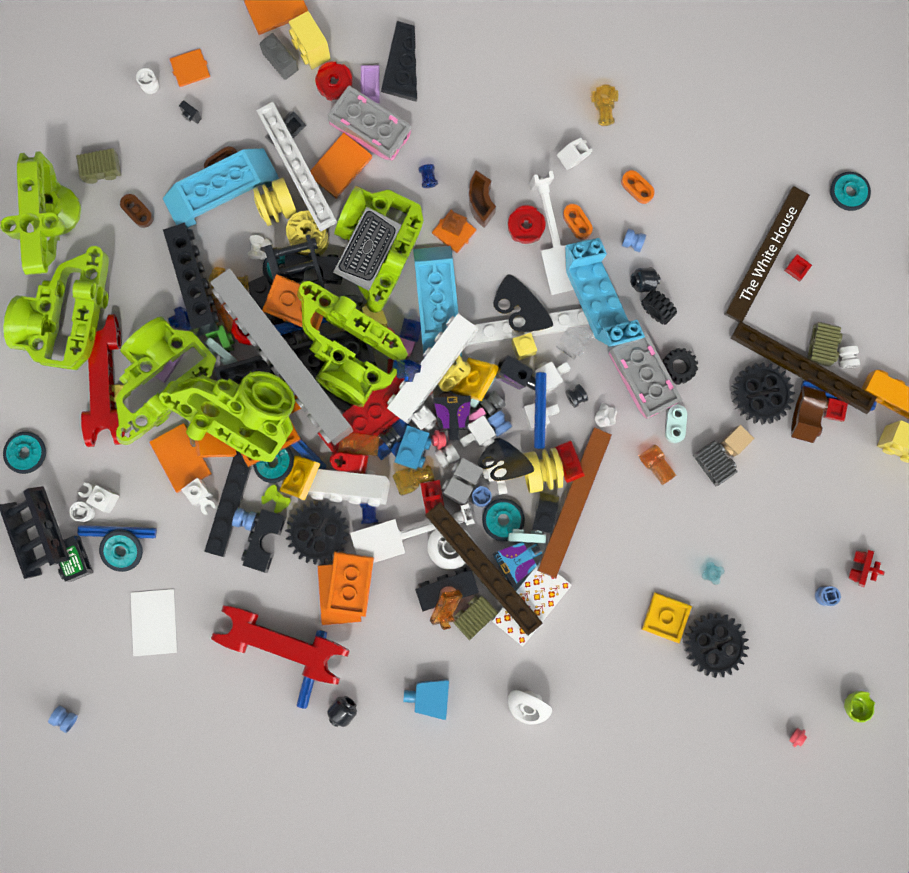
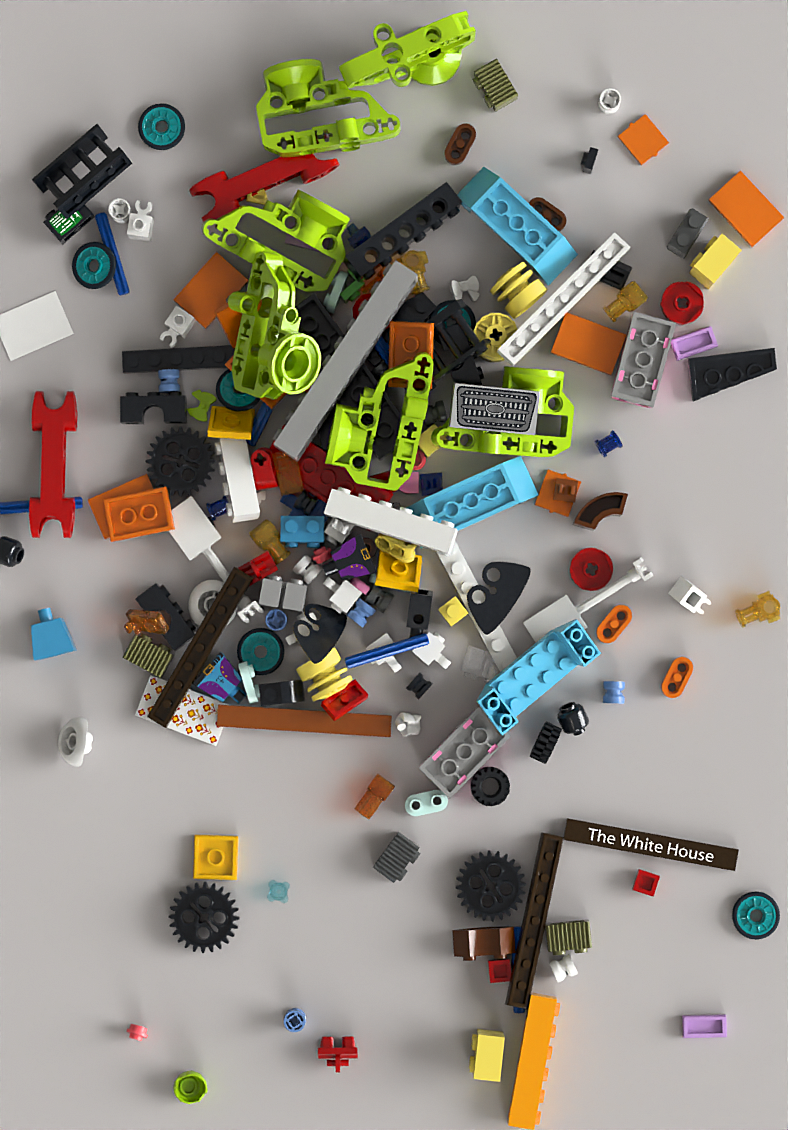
camera: 80 degrees right, 5 degrees up
(315, 119) = (627, 299): none -> clear yellow connector
(406, 369) = (378, 495): clear blue tile -> none
(737, 441) = (427, 872): tan brick -> none

